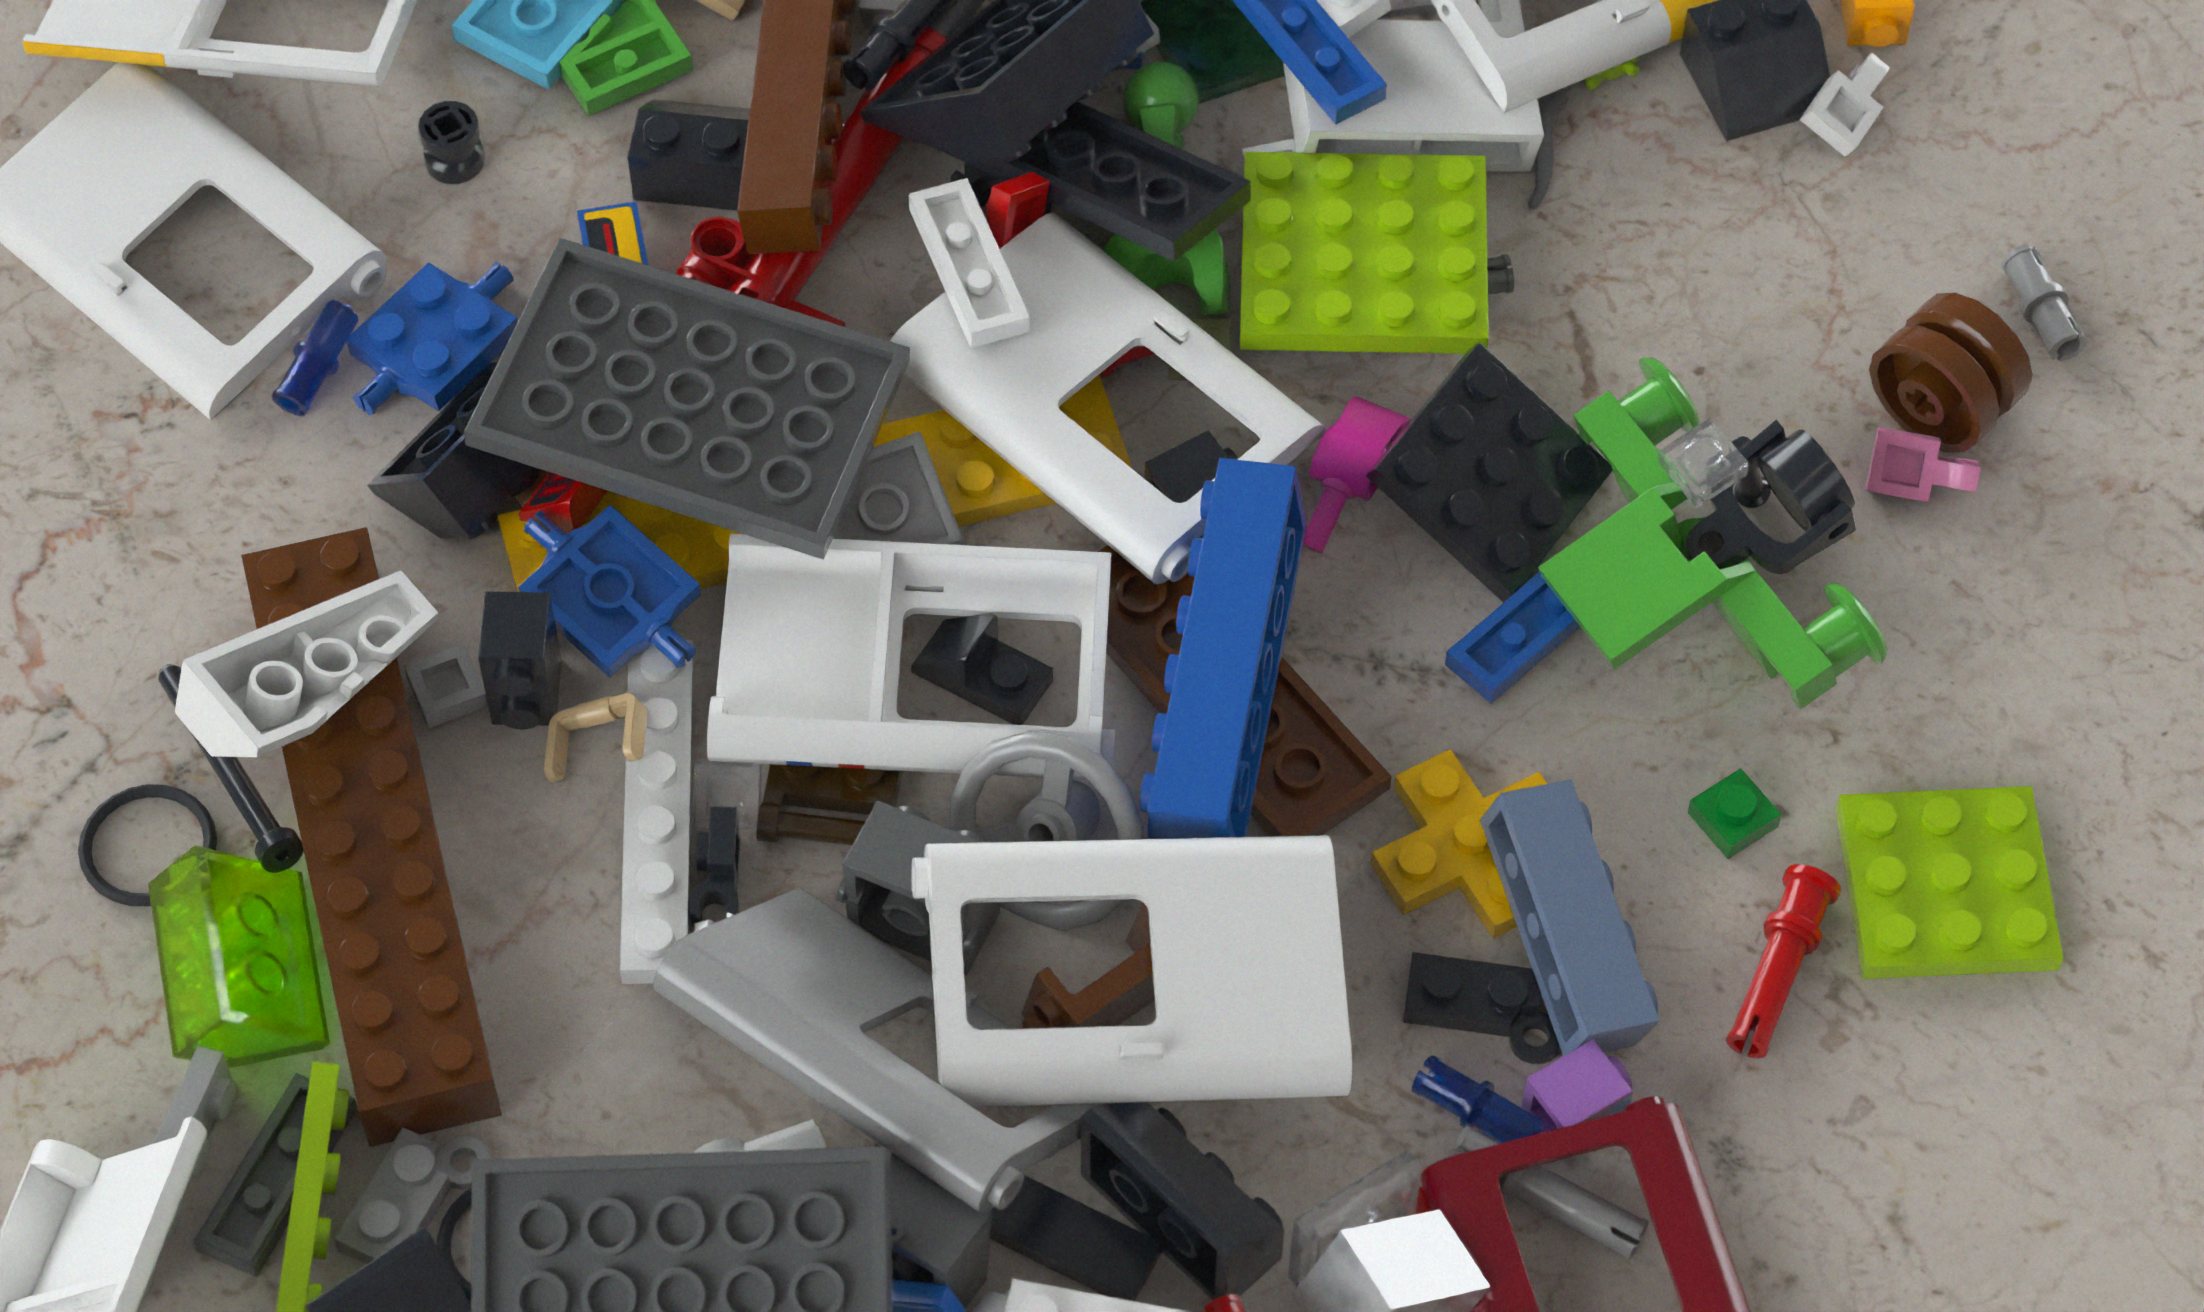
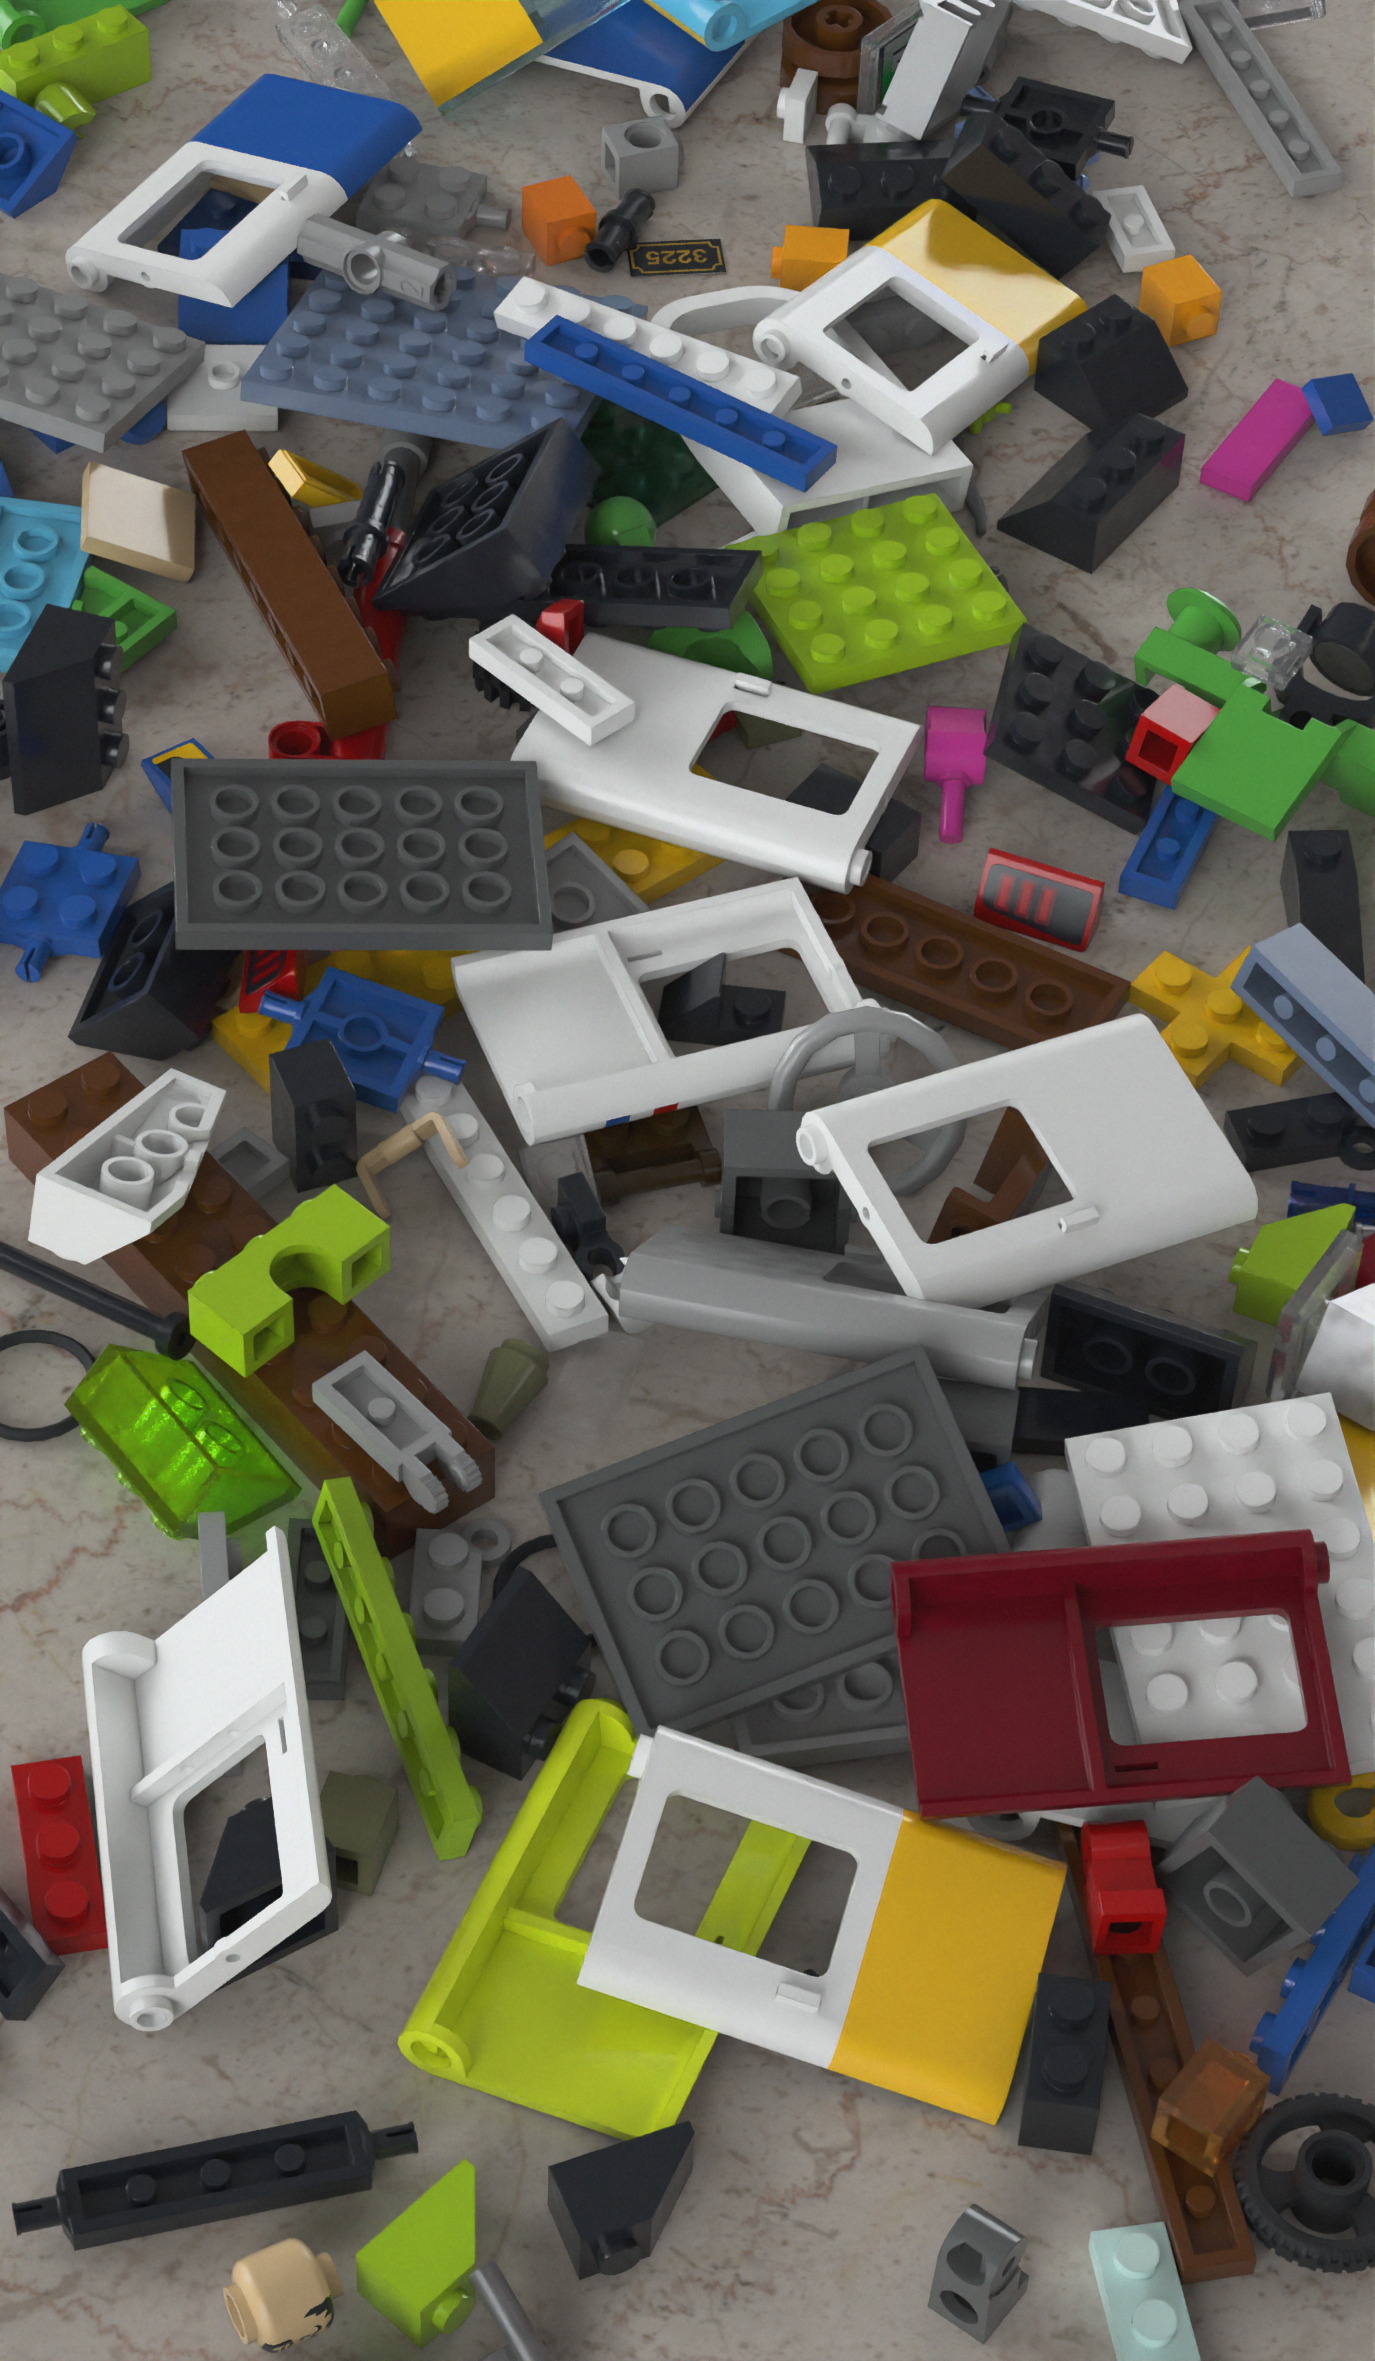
camera: 25 degrees left, 10 degrees down
(393, 1030) = (395, 1429): none -> light grey hinge
(425, 812) = (322, 1245): none -> lime arch
(504, 143) = (64, 709): none -> black slope
(561, 1008) = (508, 1385): none -> olive cone
(688, 154) = (226, 689): black slope -> none
(1228, 653) = (955, 901): blue brick -> none
(1354, 651) = (1039, 900): none -> slope
(1376, 1132) = (1283, 1259): none -> lime slope
(1568, 509) = (1169, 732): none -> red brick
(1633, 763) = (1323, 893): none -> black slope
(1670, 199) = (1099, 491): none -> black slope
(1845, 107) = (1201, 386): white plate -> none
(1879, 187) = (1259, 442): none -> dark pink tile
(1975, 172) = (1337, 404): none -> blue tile

